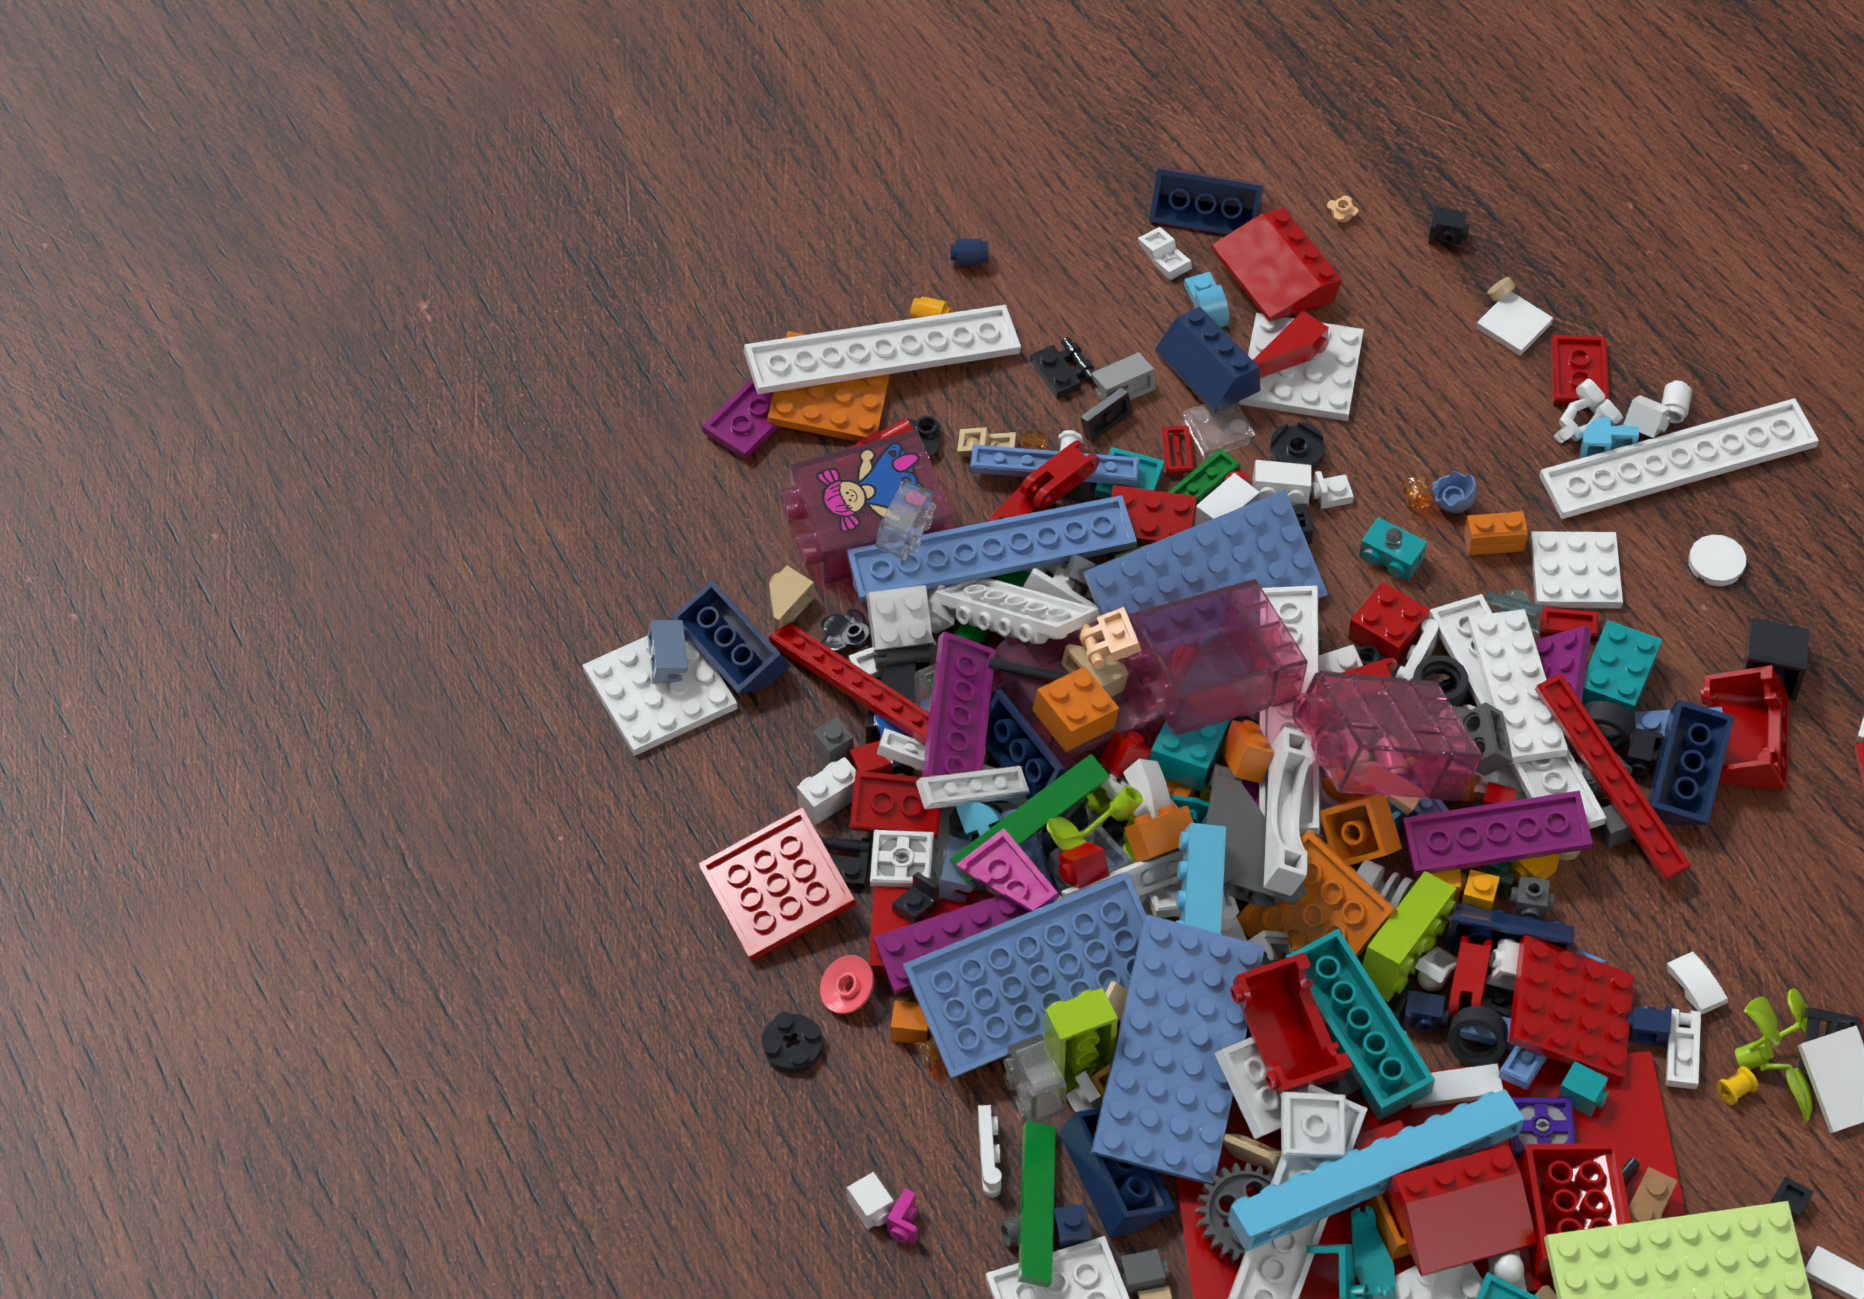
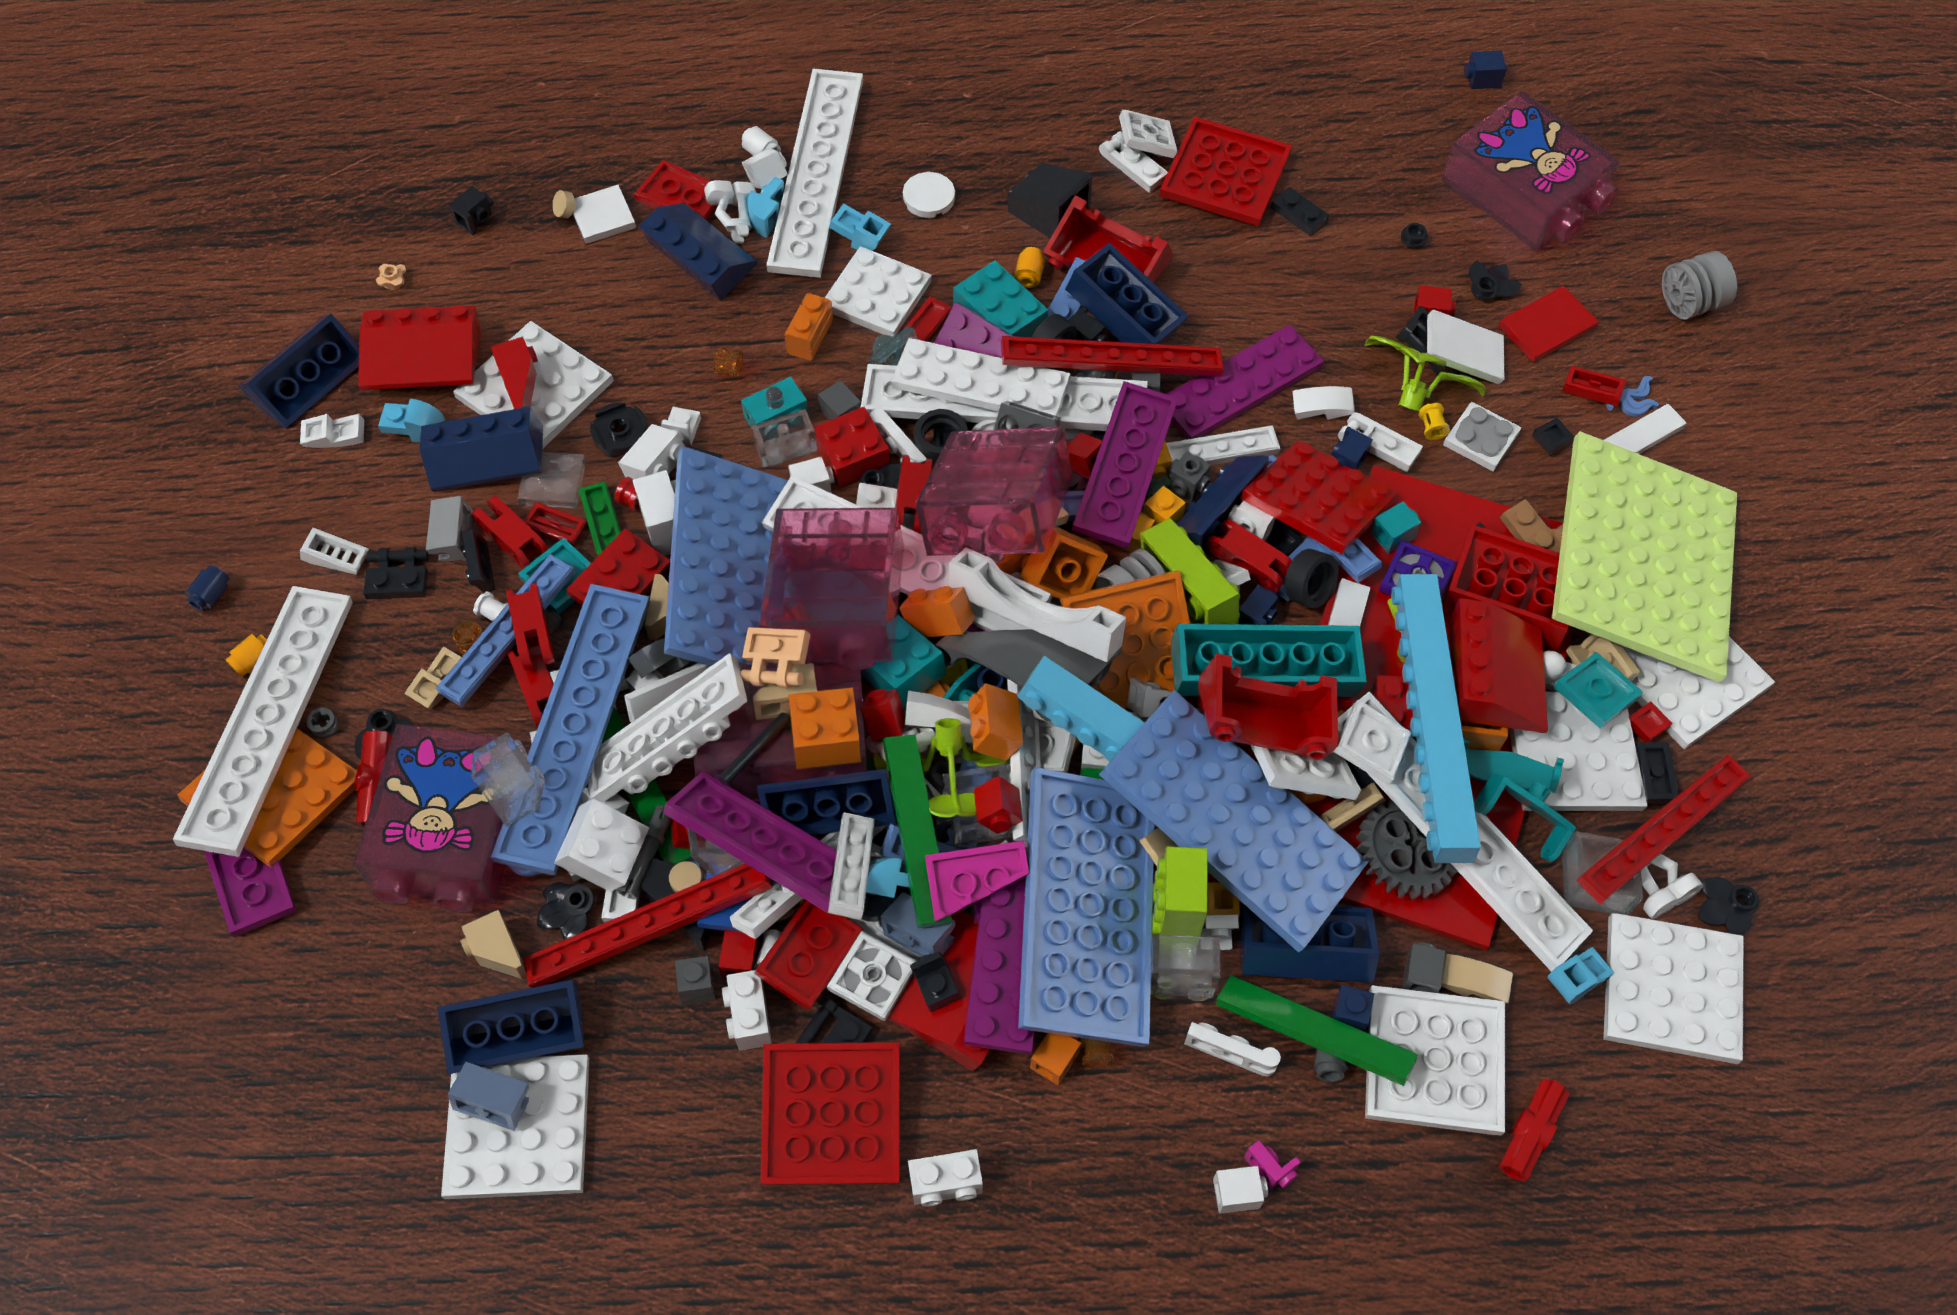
camera: 65 degrees left, 5 degrees up
(768, 985) = (945, 1178): none -> white brick
(798, 1057) = (1014, 1205): black plate -> none
(838, 980) = (978, 1113): coral dish -> none
(904, 398) = (326, 731): none -> dark grey bush
(906, 687) = (684, 875): none -> tan tile
(1051, 297) = (317, 537): none -> white slope
(1146, 422) = (509, 532): none -> red piece
(1336, 609) = (813, 472): none -> white brick
(1361, 566) = (784, 438): none -> clear brick
(1430, 590) = (837, 401): none -> dark grey brick
(1455, 492) = (749, 333): medium blue hair -> none
(1522, 409) = (697, 248): none -> dark blue slope
(1591, 920) = (1228, 446): none -> white tile
(1632, 519) = (861, 229): none -> medium azure brick
(1675, 906) = (1245, 383): none -> magenta plate
(1684, 676) = (1029, 267): none -> light orange brick
(1752, 1137) = (1482, 436): none -> piece

